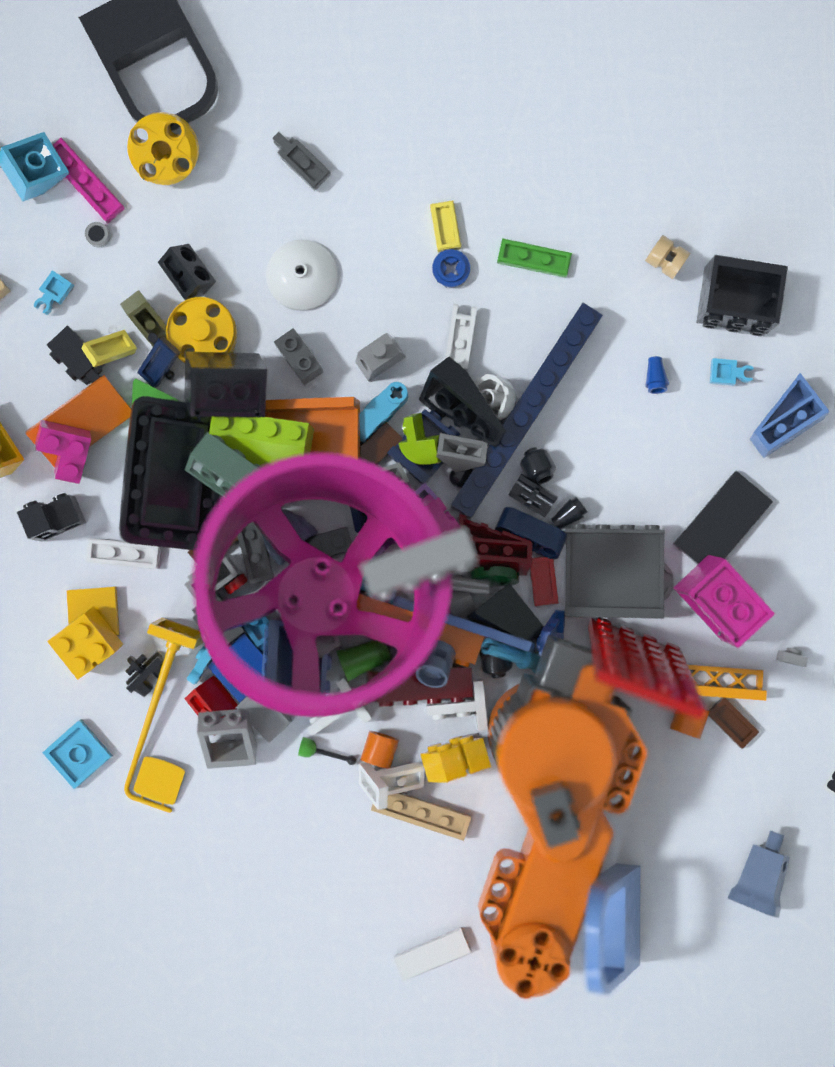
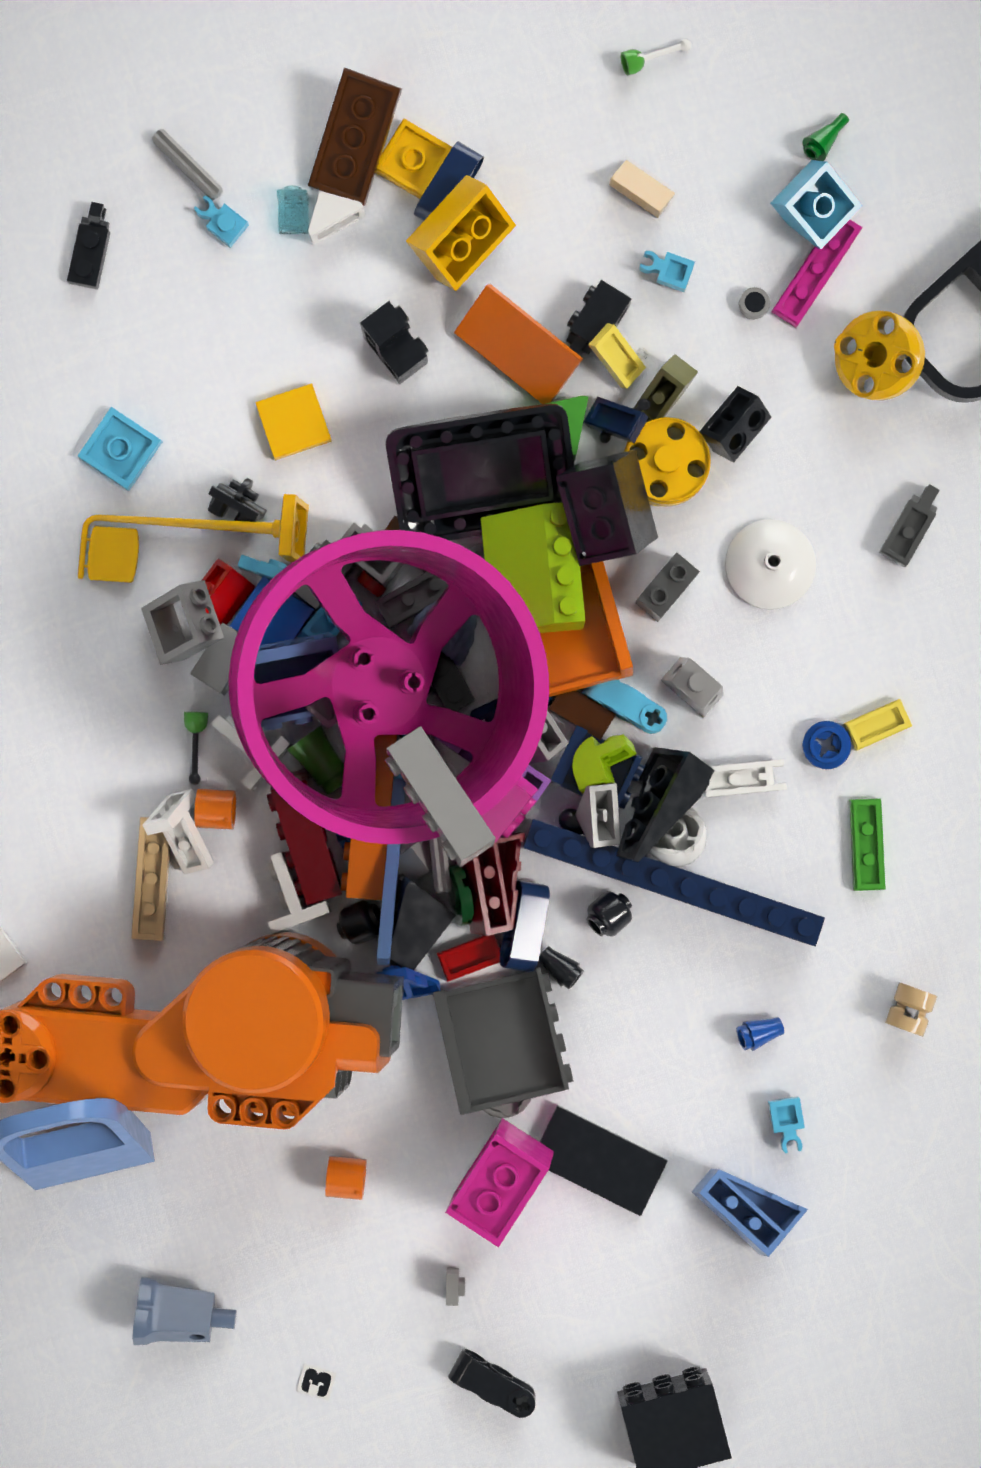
camera: 70 degrees right, 0 degrees up
(69, 444) = (485, 341): dark pink brick -> none
(85, 643) = (254, 423): yellow piece -> none
(122, 554) = (372, 437): white tile -> none
(218, 464) = (505, 530): sand green slope -> none
(437, 665) = (332, 851): sand blue wheel -> none
(450, 760) = (224, 898): yellow piece -> none
(520, 657) = (370, 924): medium azure pin -> none
(533, 495) = (570, 917): black hips -> none
(561, 829) = (169, 1040): dark grey brick -> none
(643, 667) = (390, 1098): red plate -> none
(730, 691) = (388, 1199): light orange fence -> none
(732, 723) = (356, 1232): reddish brown tile -> none
(741, 295) = (886, 1113): black container -> none

